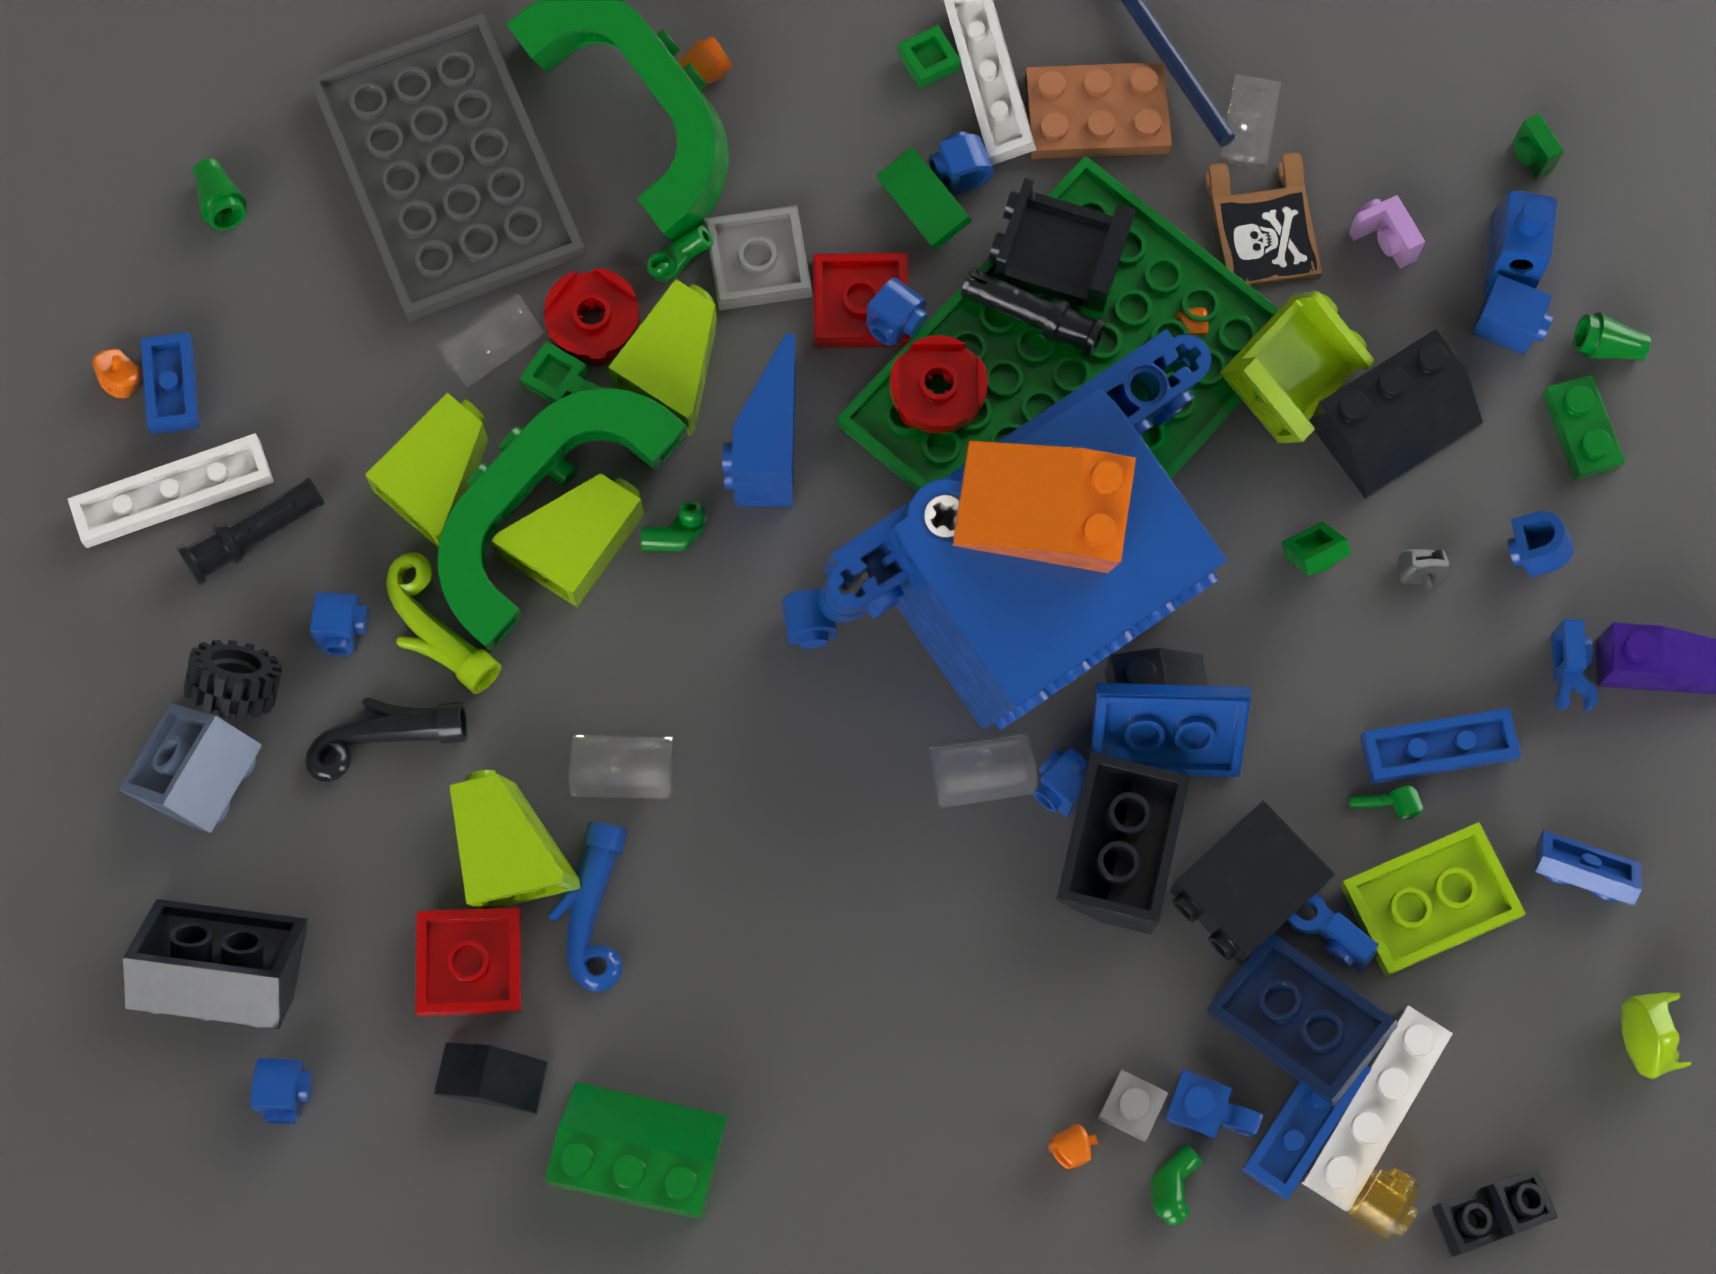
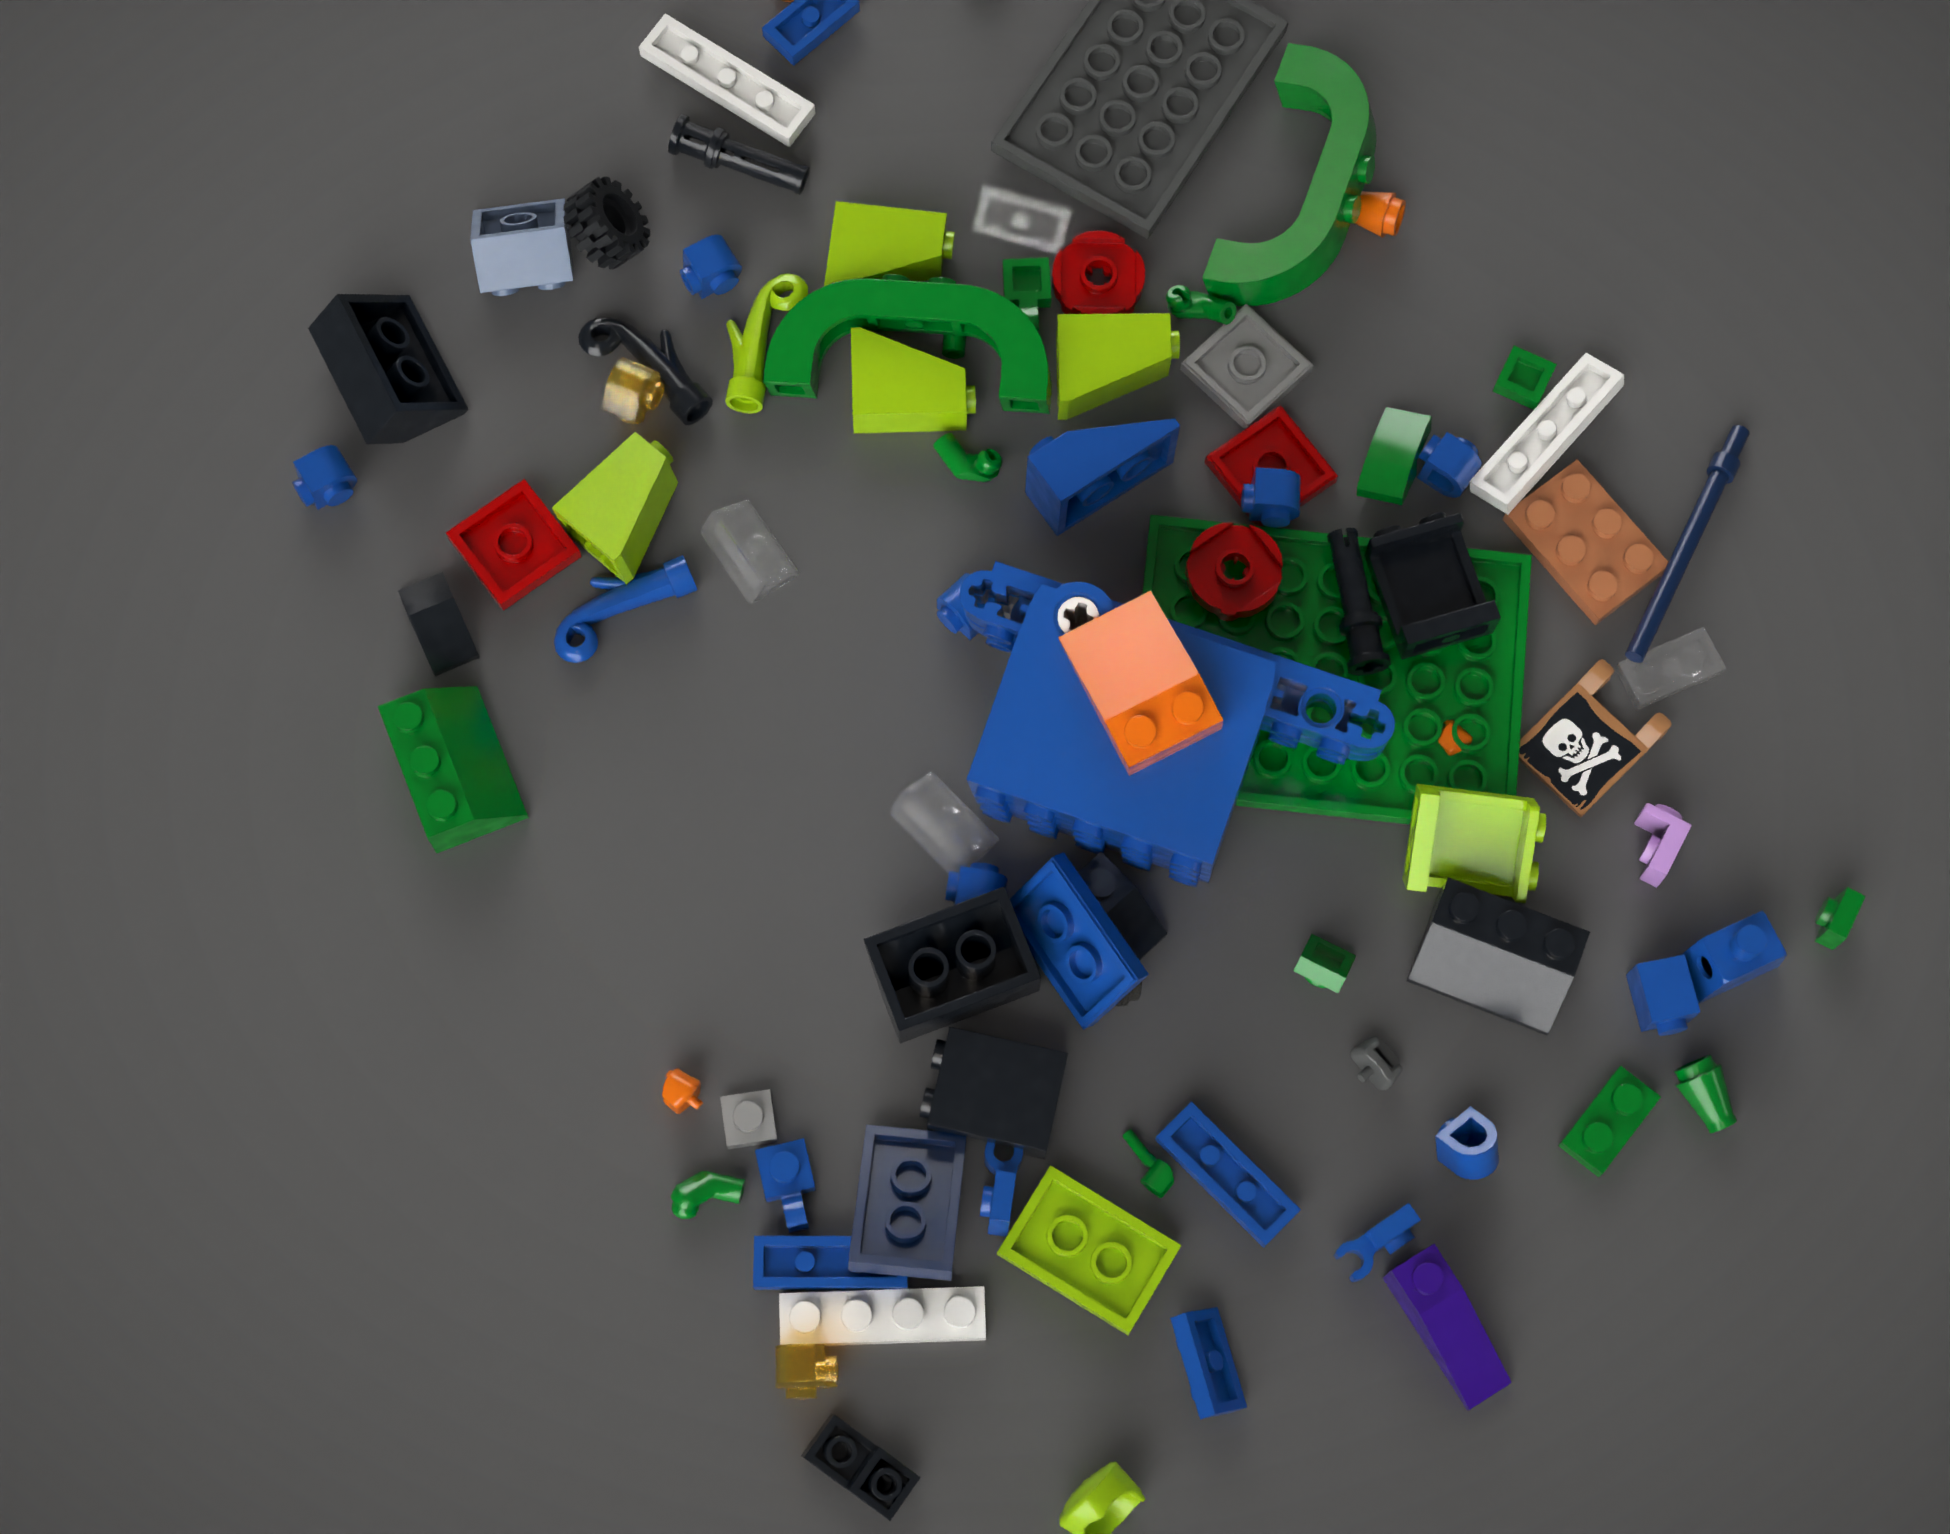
camera: 55 degrees right, 0 degrees up
(406, 763) = (632, 391): none -> clear yellow plate

